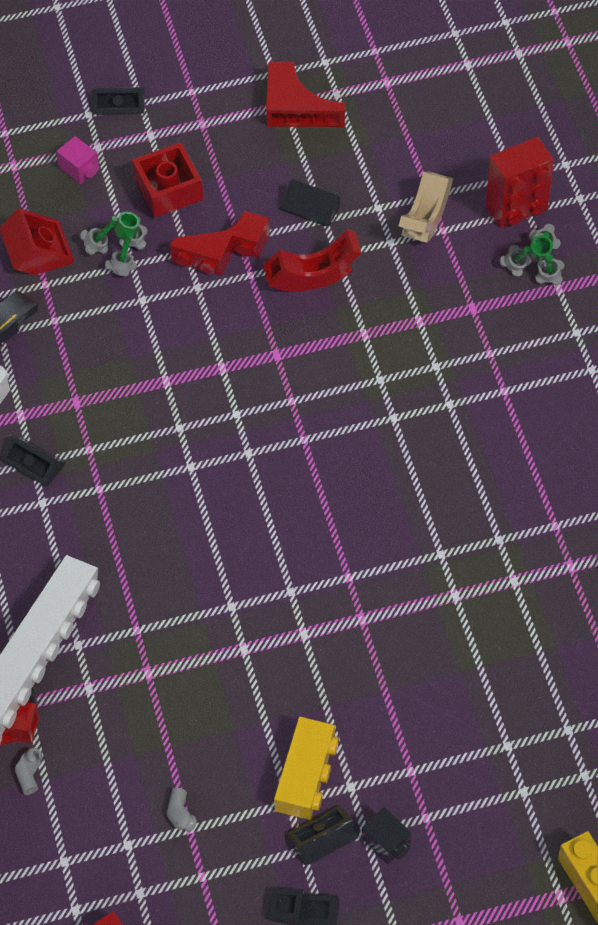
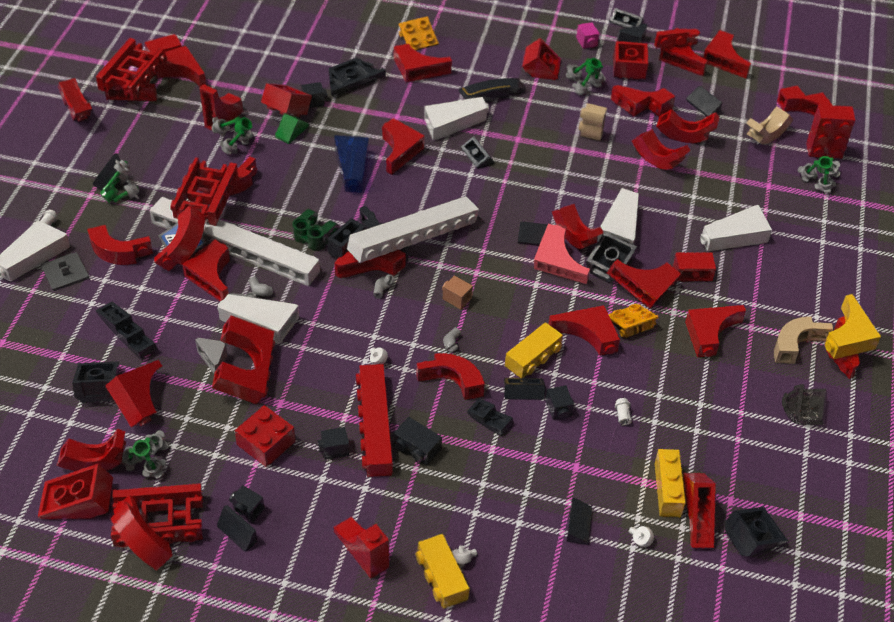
camera: 25 degrees right, 10 degrees down
(93, 895) = (378, 355): none -> white piece
(143, 726) = (457, 292): none -> nougat brick
(145, 130) = (632, 34): none -> black slope
(175, 325) = (593, 121): none -> tan brick
(199, 564) = (531, 233): none -> black slope
(217, 858) = (456, 369): none -> red arch
(218, 111) = (676, 37): none -> red hinge
(231, 132) = (684, 58): none -> red arch
(248, 594) = (555, 259): none -> coral arch
(249, 529) = (576, 232): none -> red arch
(293, 332) = (656, 153): none -> red arch
(309, 486) = (622, 217): none -> white slope
(327, 555) = (607, 252): none -> black slope
(361, 683) = (591, 325): none -> red arch
(403, 576) = (644, 284): none -> red arch
(409, 640) = (633, 319): none -> light orange hinge
(447, 507) = (695, 266): none -> red brick
(471, 132) = (795, 100): none -> red arch
(473, 414) = (737, 230): none -> white slope
(477, 801) = (622, 406): none -> white pin
(514, 604) = (706, 325): none -> red arch

